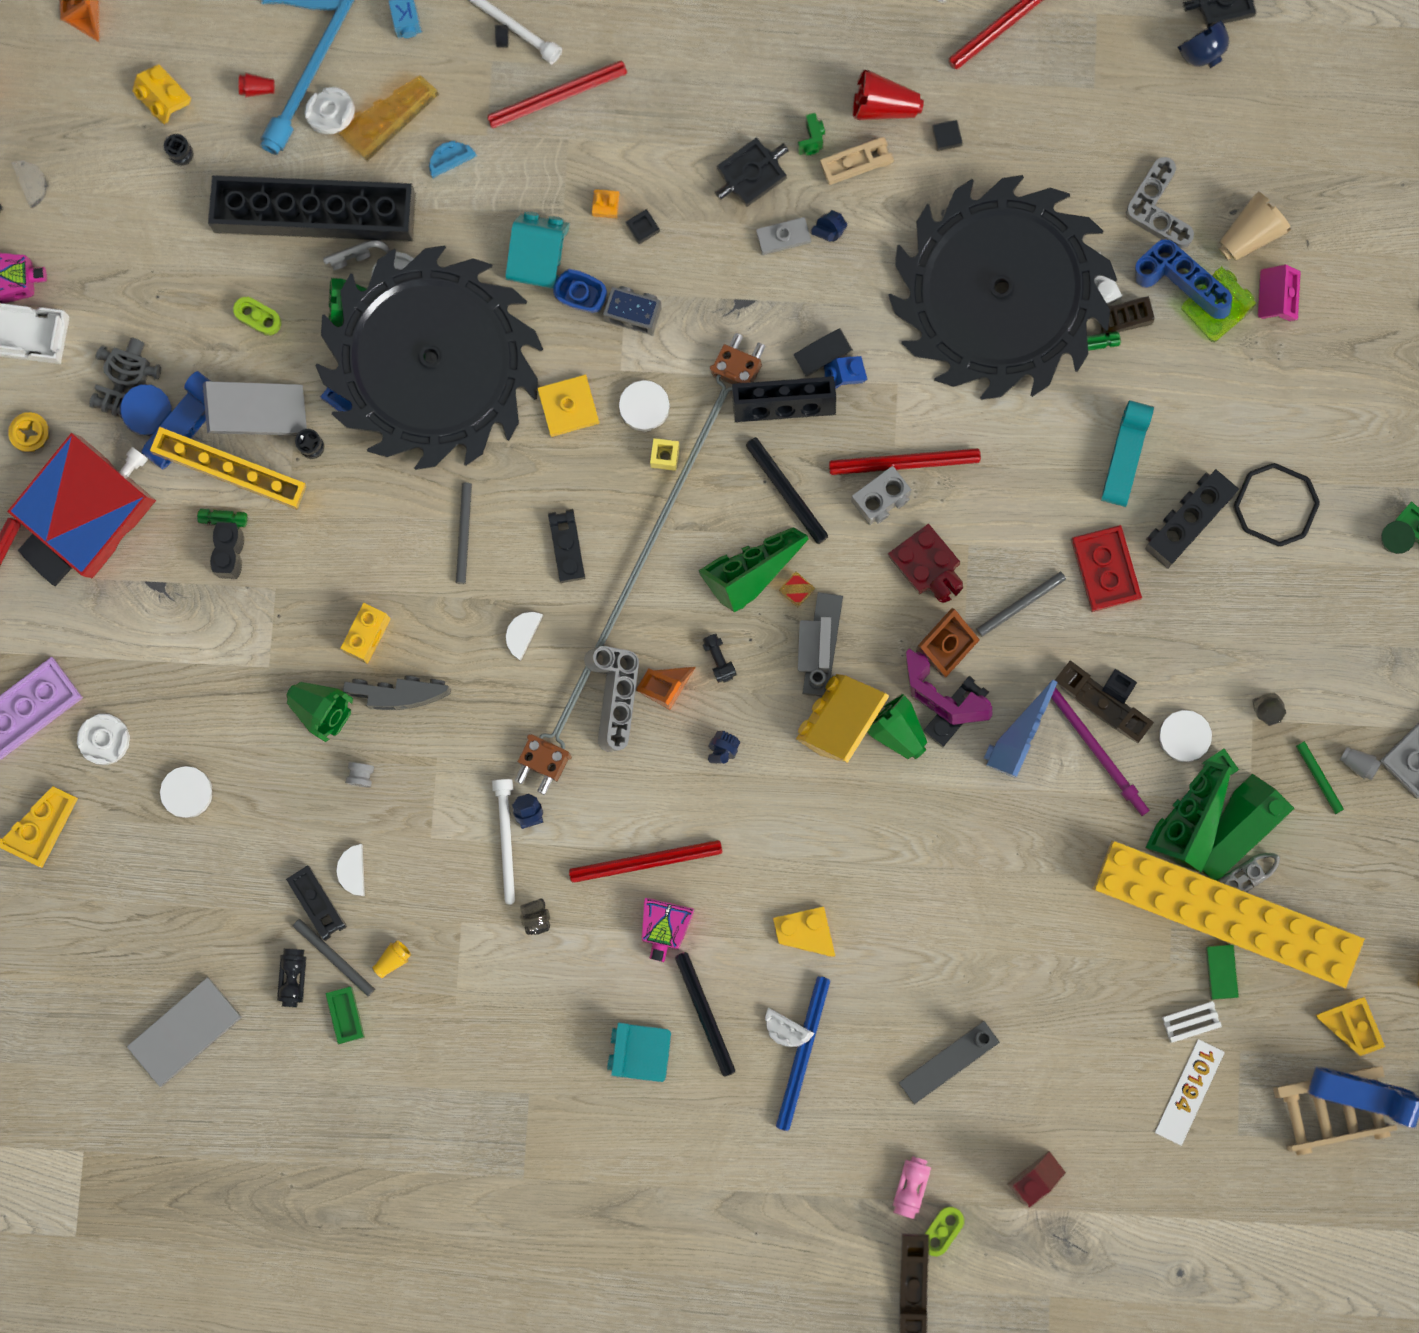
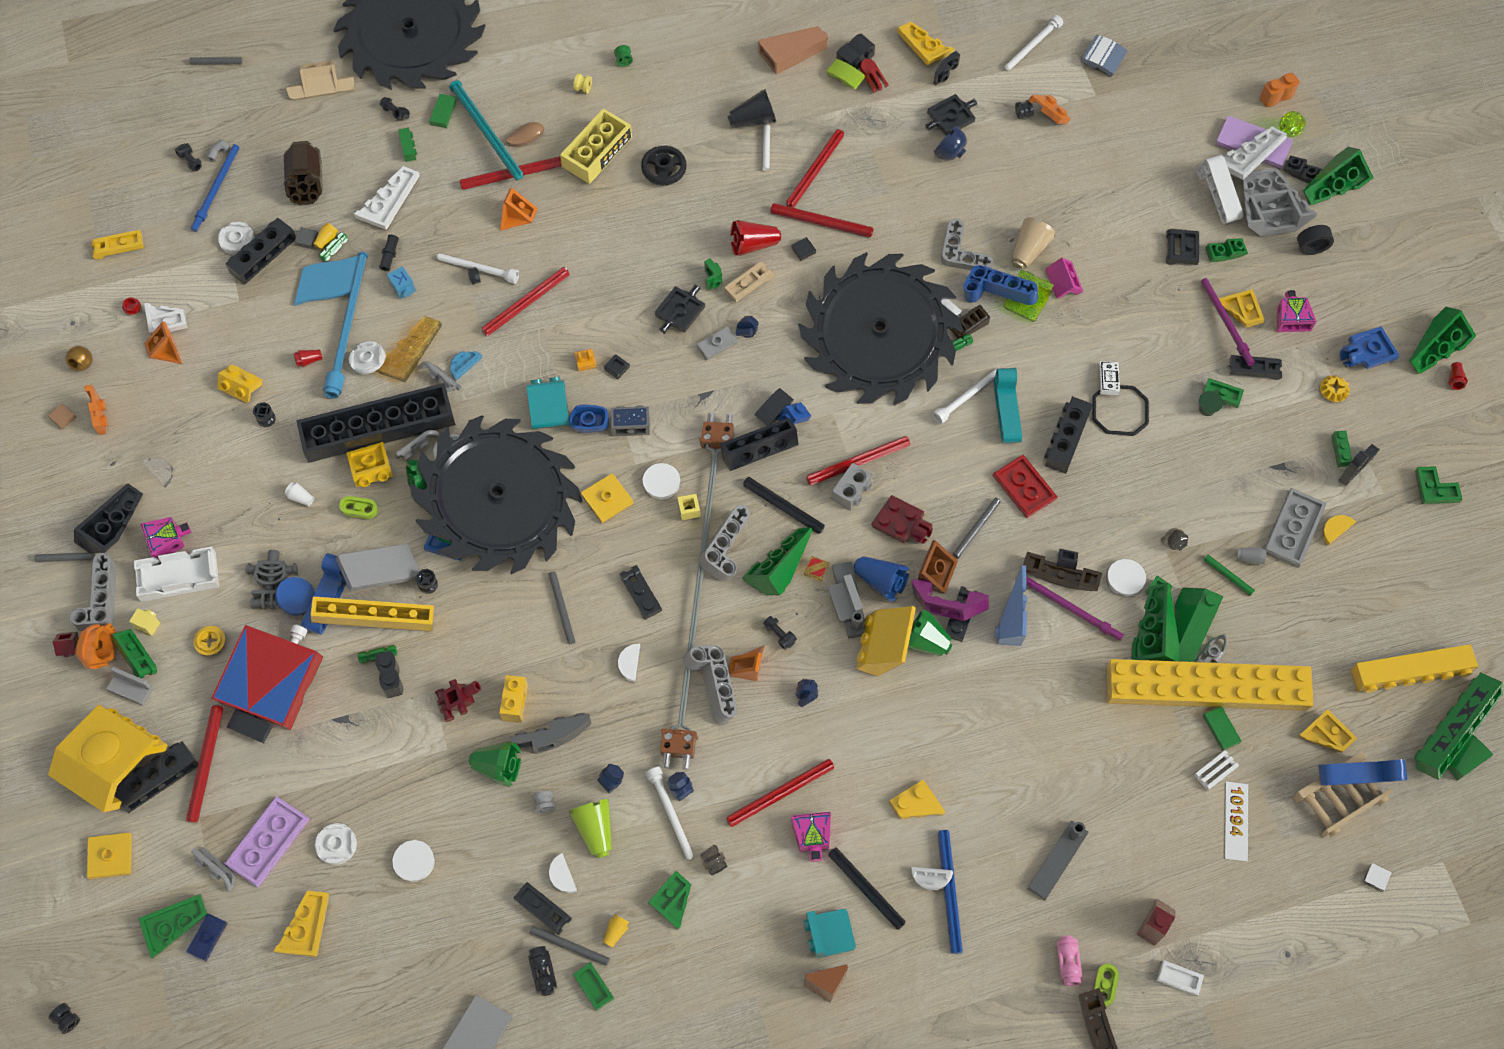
camera: 30 degrees left, 15 degrees down
(189, 273) = (298, 494): none -> white cone
(287, 262) = (369, 465): none -> yellow plate
(298, 609) = (456, 698): none -> dark red piece
(408, 826) = (594, 826): none -> lime cone
(411, 161) = (437, 373): none -> light grey piece
(449, 772) = (611, 777): none -> dark blue piece
(470, 946) = (672, 899): none -> green wing
(613, 1112) = (826, 981): none -> dark orange slope
(696, 516) = (726, 539): none -> light grey beam
(873, 630) = (882, 576): none -> blue cone
(987, 100) = (822, 220): none -> red axle
(1036, 435) = (942, 414): none -> white piece
(1036, 1254) = (1180, 978): none -> white tile
(1279, 456) = (1109, 378): none -> tile
(1330, 20) = (1024, 109): none -> black wheel
(1331, 1223) = (1377, 877): none -> white tile
(1366, 32) = (1051, 108): none -> orange wing

